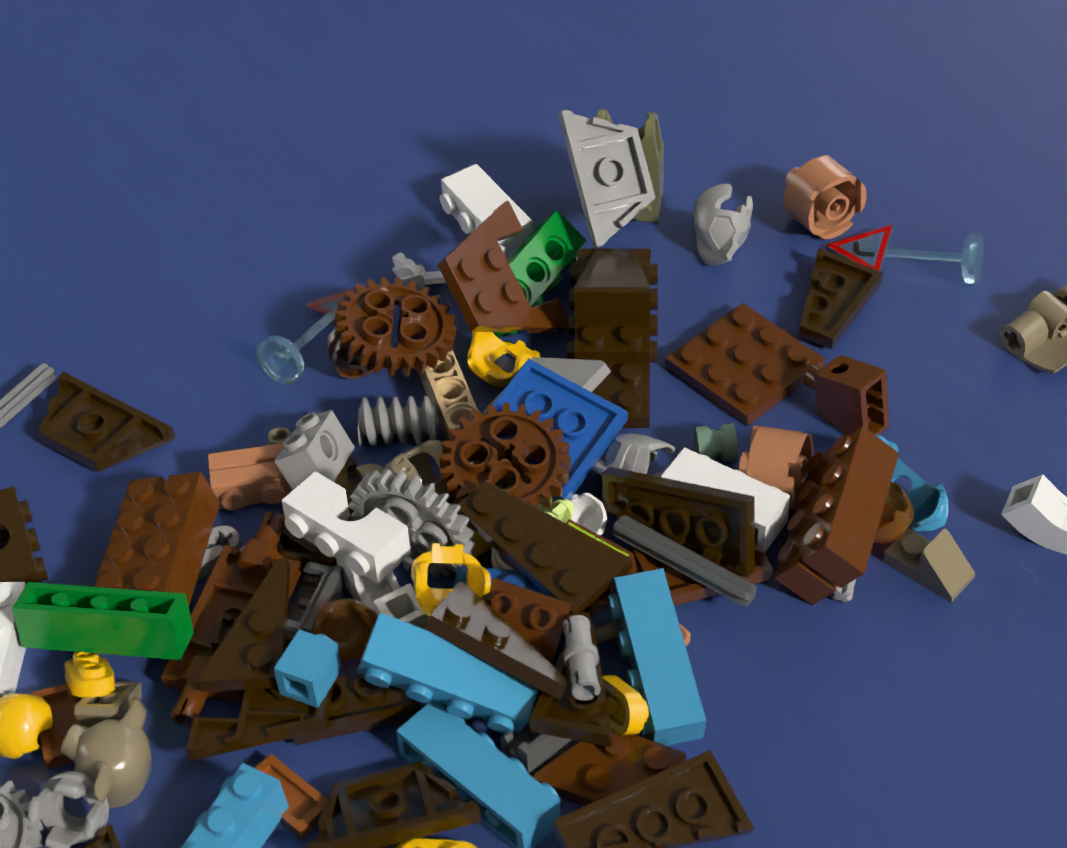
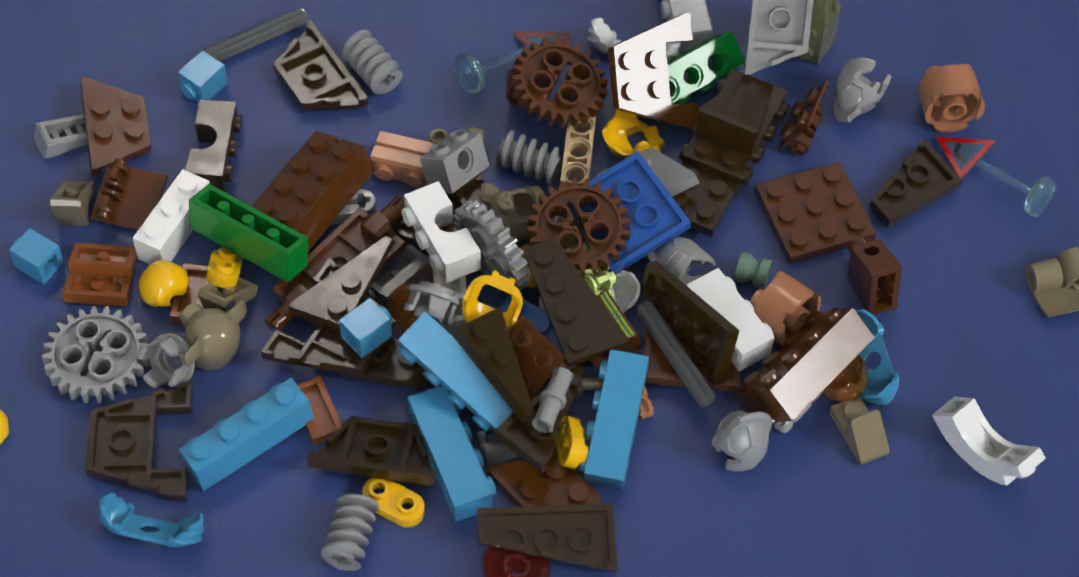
camera: 20 degrees right, 10 degrees up
(158, 389) = (372, 62): none -> light grey piece
(375, 597) = (434, 299): none -> light grey piece
(680, 274) = (804, 122): none -> reddish brown hinge
(812, 618) = (744, 438): none -> light grey helmet

